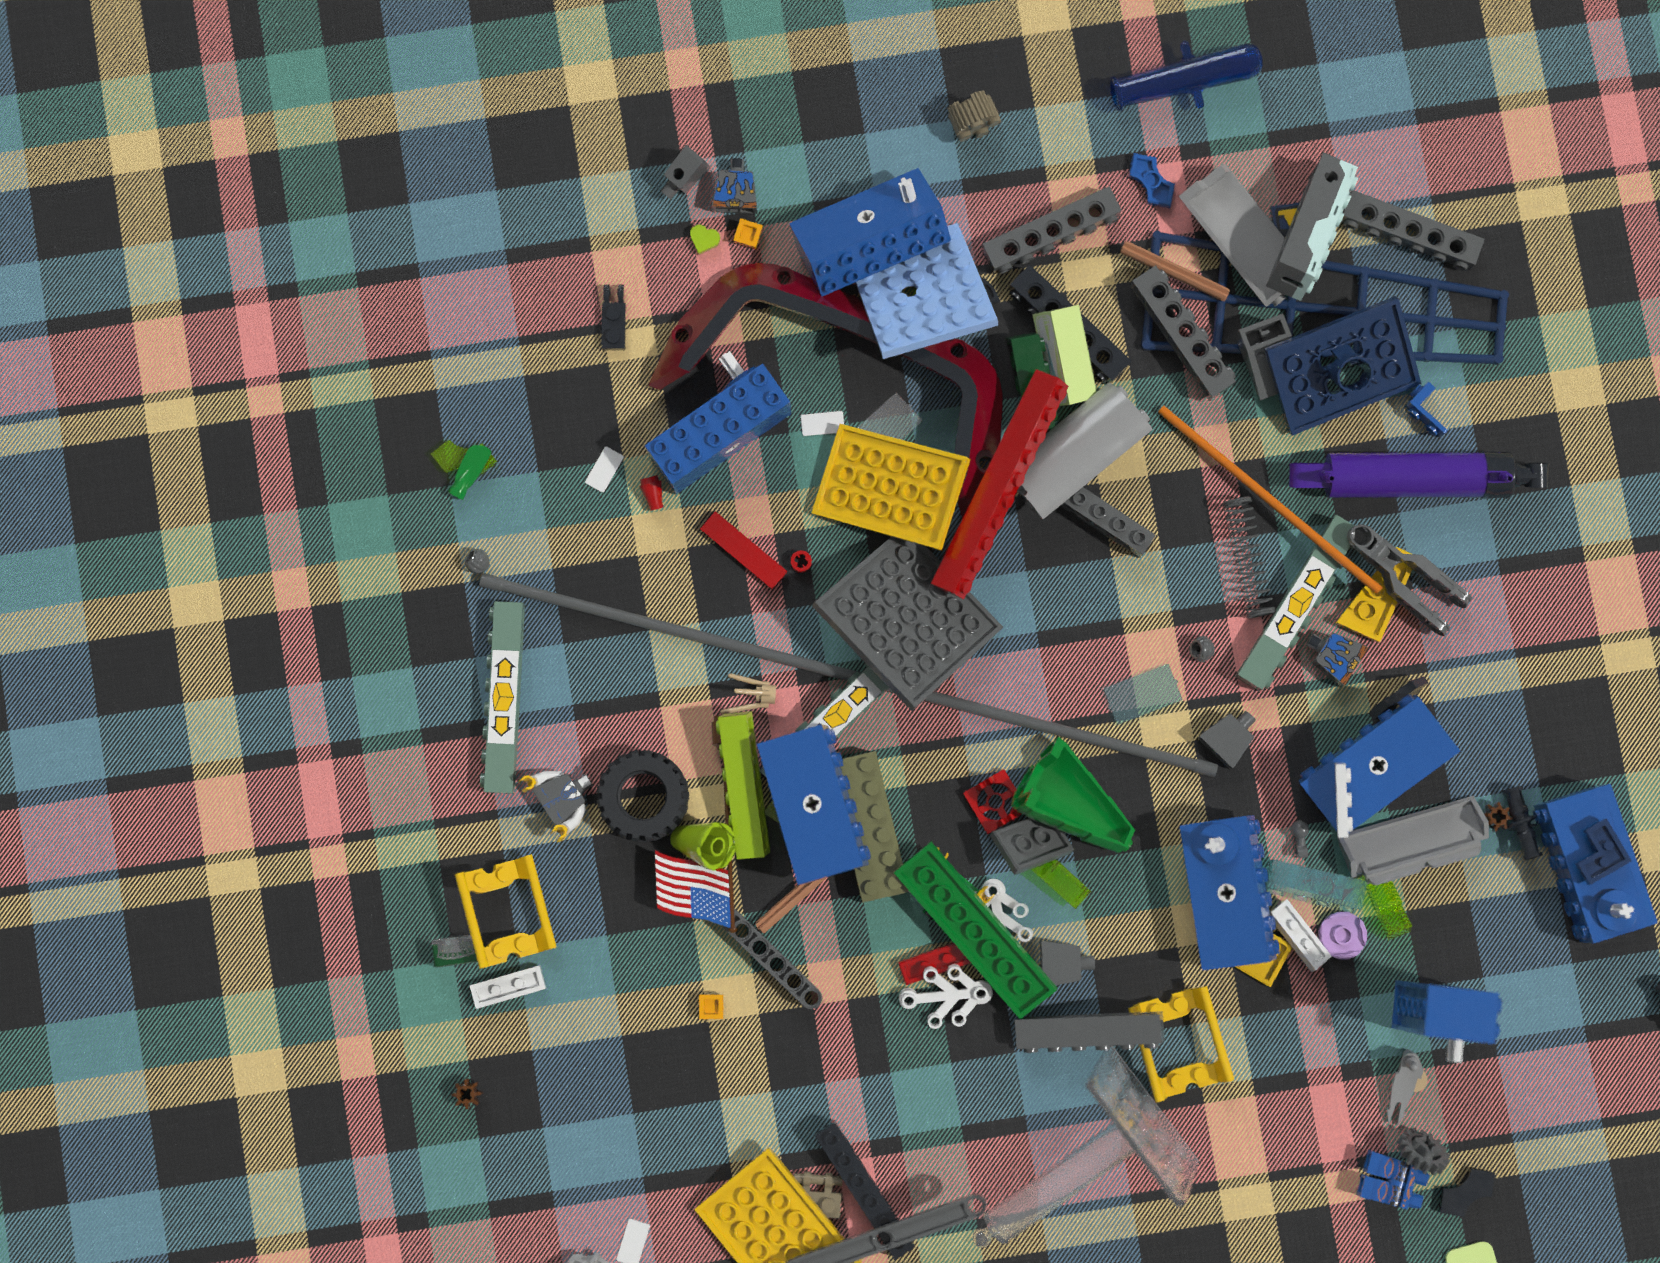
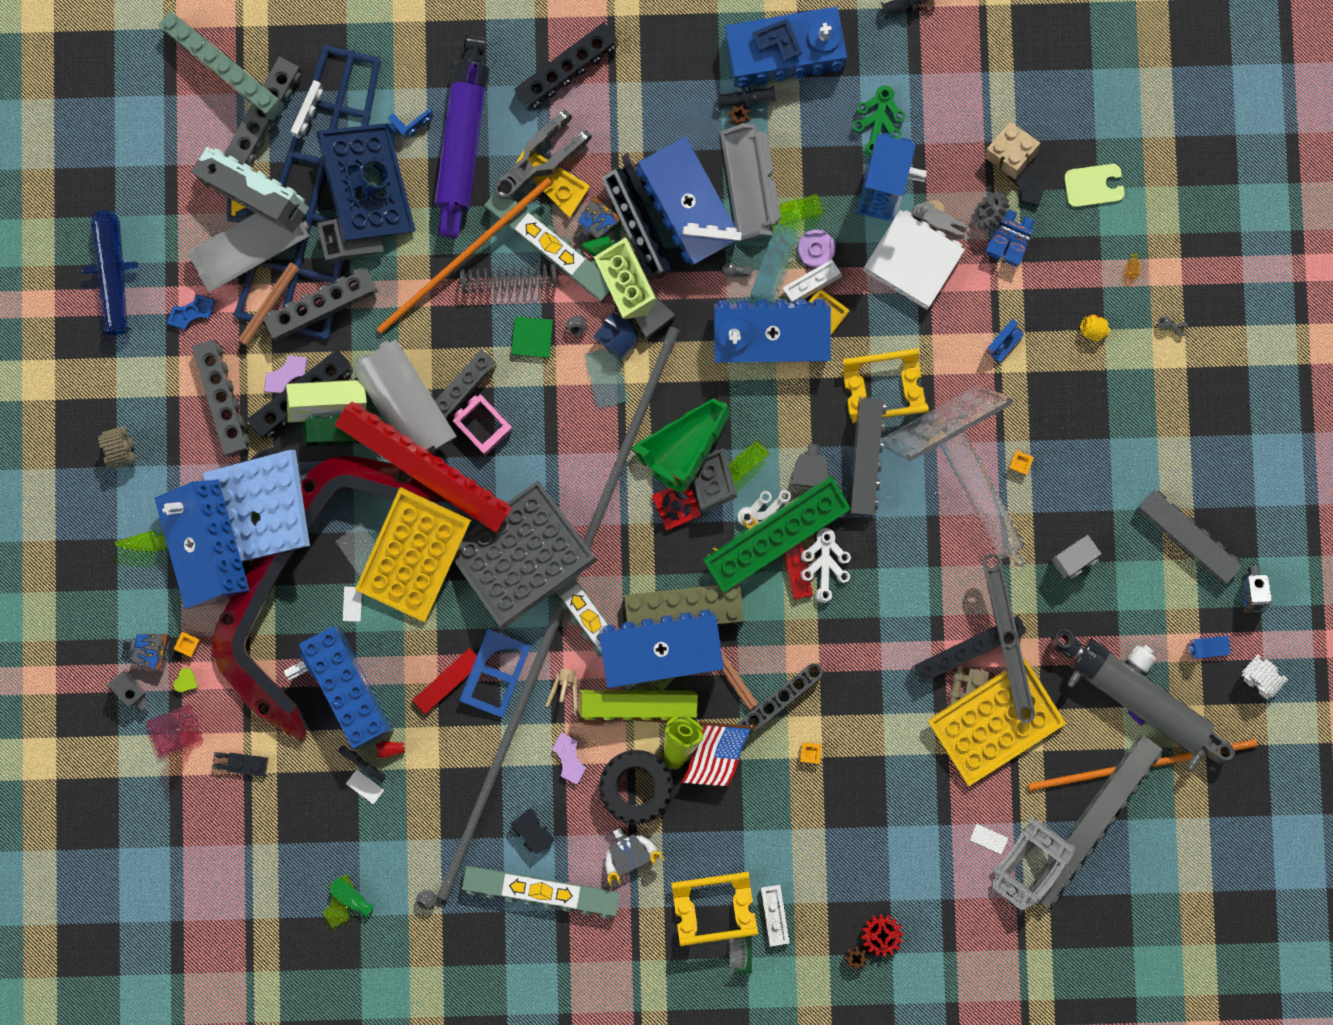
camera: 80 degrees left, 0 degrees up
(501, 1134) = (890, 935): none -> red gear
(573, 676) = (530, 830): none -> black brick
(630, 461) = (361, 763): none -> black tile
(643, 234) = (174, 730): none -> clear pink bracket
(657, 715) = (571, 766): none -> lavender tile
(796, 598) = (492, 643): none -> blue window
(807, 558) = (461, 630): red bush -> none
(864, 165) = (144, 542): none -> clear neon green slope
(1049, 569) = (496, 438): none -> bright pink window
(1099, 312) = (292, 369): none -> lavender tile
(1107, 1228) = (1021, 462): none -> light orange plate
(1179, 596) = (532, 337): none -> green tile
(1196, 701) = (617, 336): none -> dark blue brick
(1259, 1189) = (1005, 341): none -> blue bracket
(1267, 701) = (626, 280): none -> yellowish green slope
(1304, 665) = (598, 245): none -> green piece
(1340, 707) = (637, 224): none -> black brick
(1347, 1061) = (914, 259): none -> white brick
(1423, 283) = (307, 110): none -> white plate
(1462, 171) = (221, 65): none -> sand green brick
(1511, 1170) = (1013, 146): none -> tan piece
(1524, 995) = (879, 116): none -> green plant
(1574, 629) = (569, 57): none -> black brick

